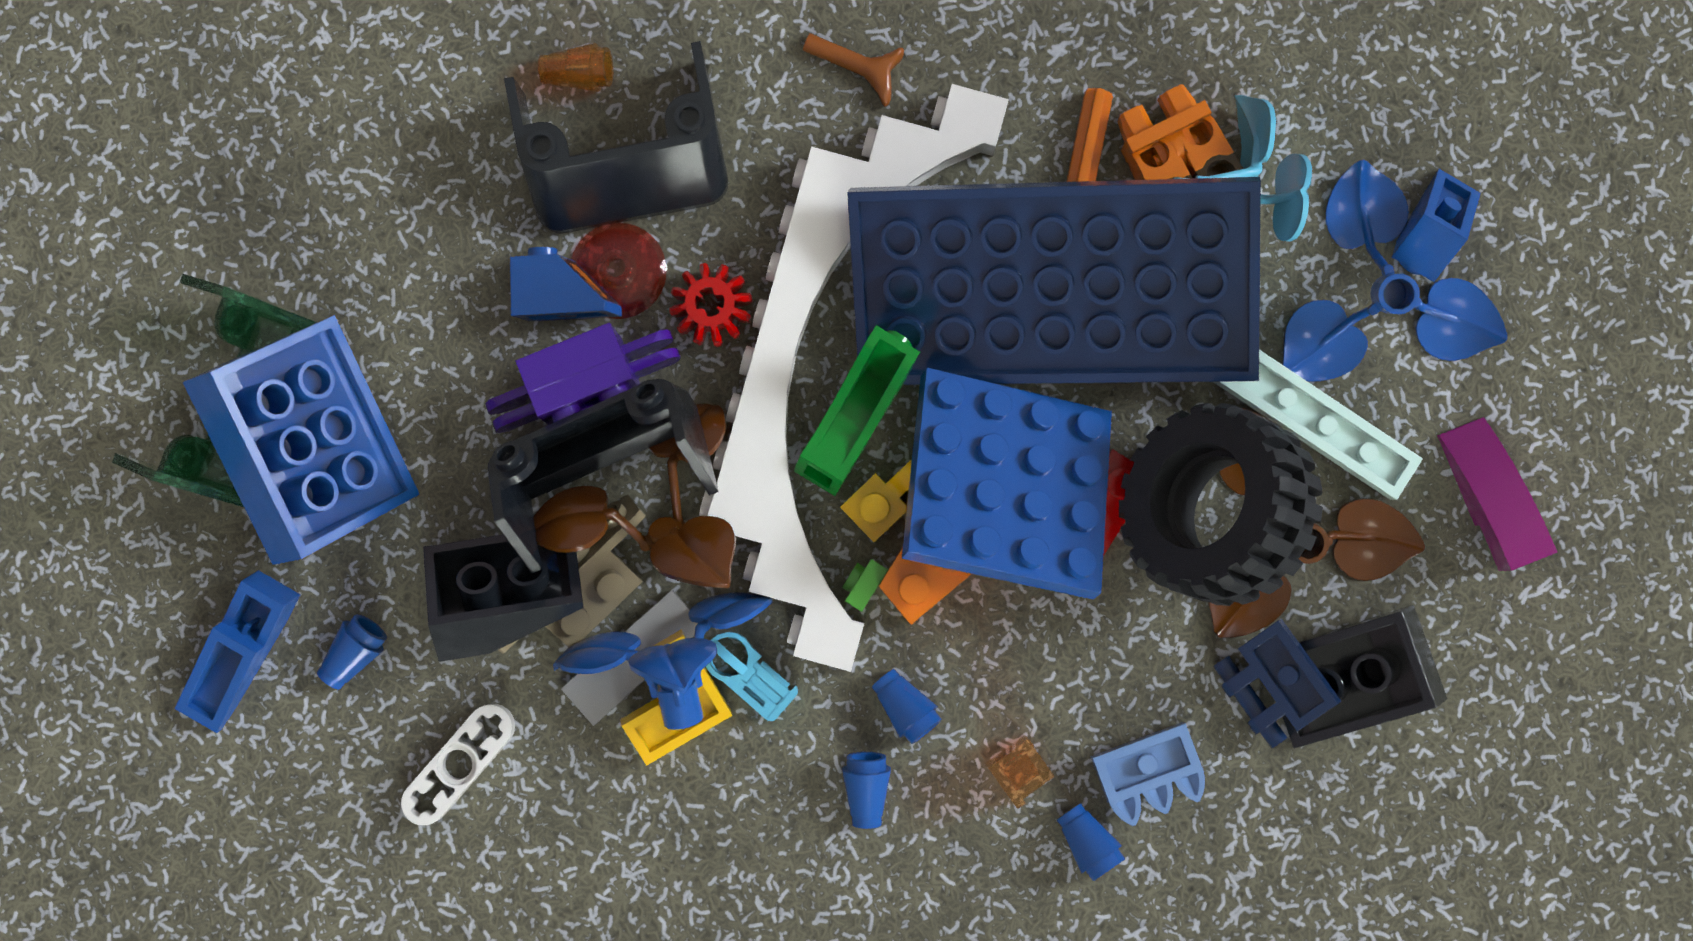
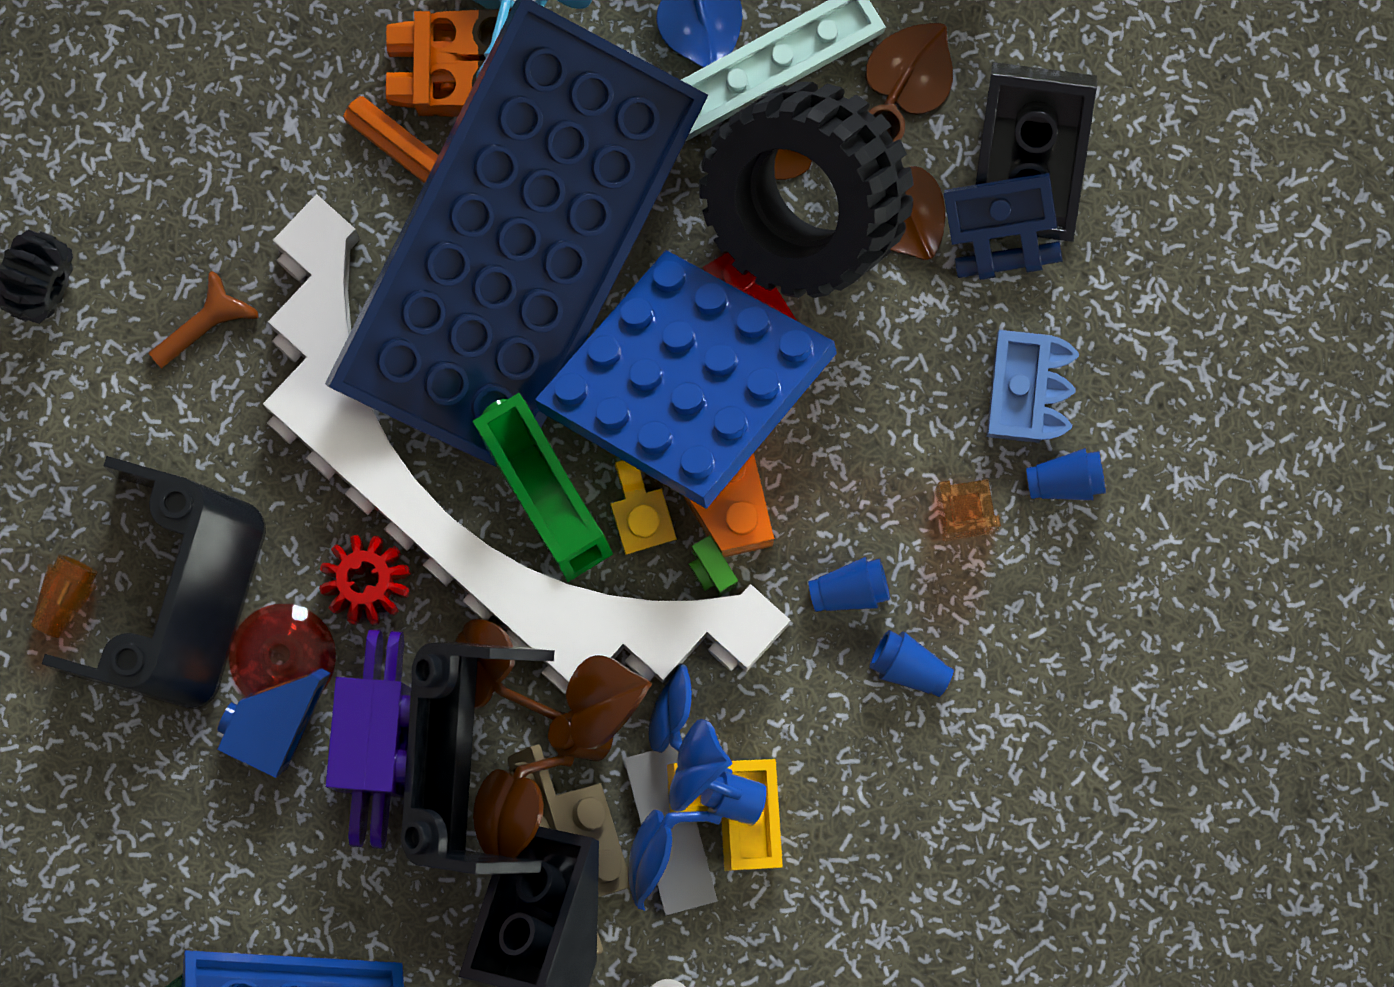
camera: 65 degrees left, 5 degrees down
(756, 681) = (756, 719): medium azure piece -> none

